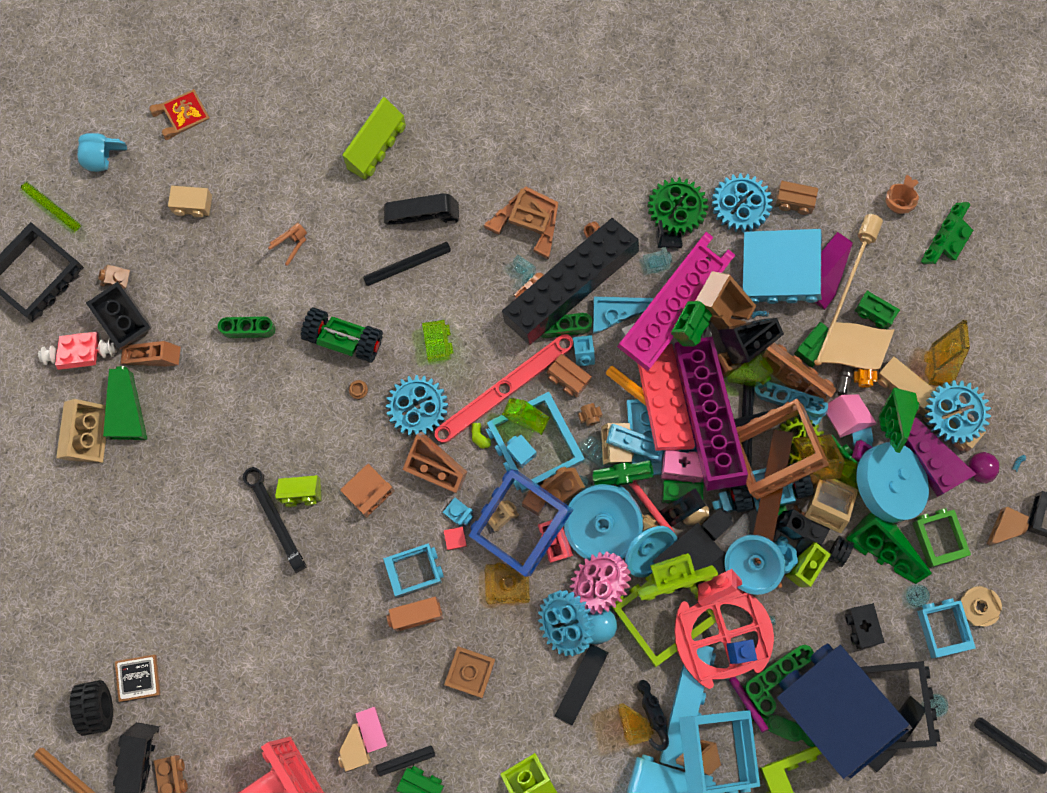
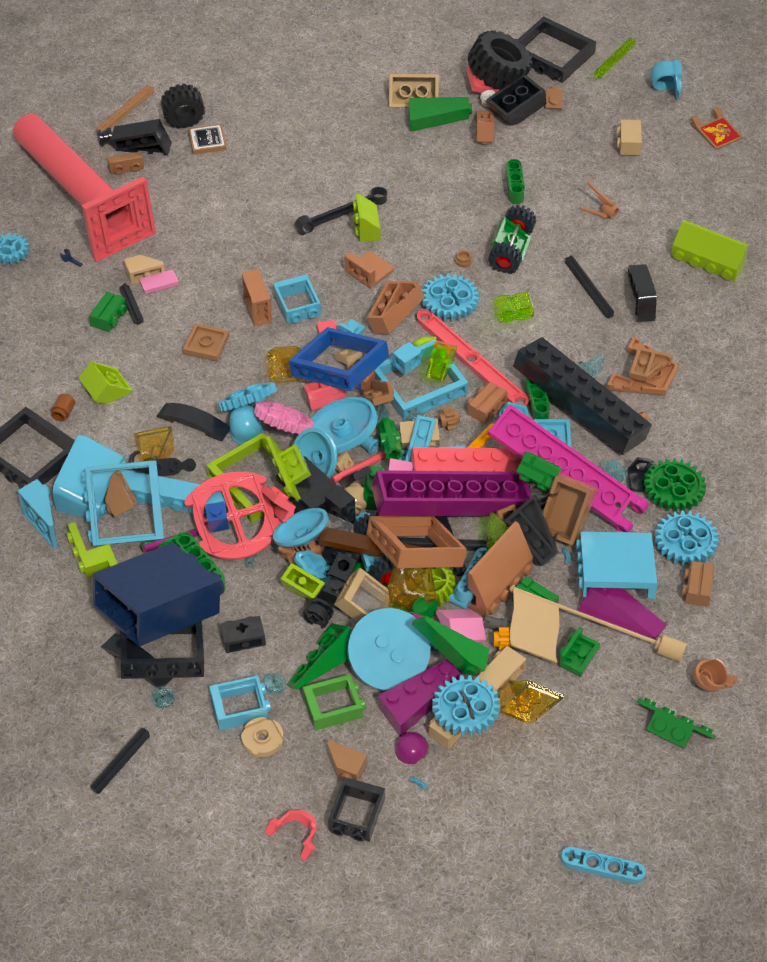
camera: 85 degrees right, 25 degrees down
(65, 343) = (498, 59): none -> black tyre

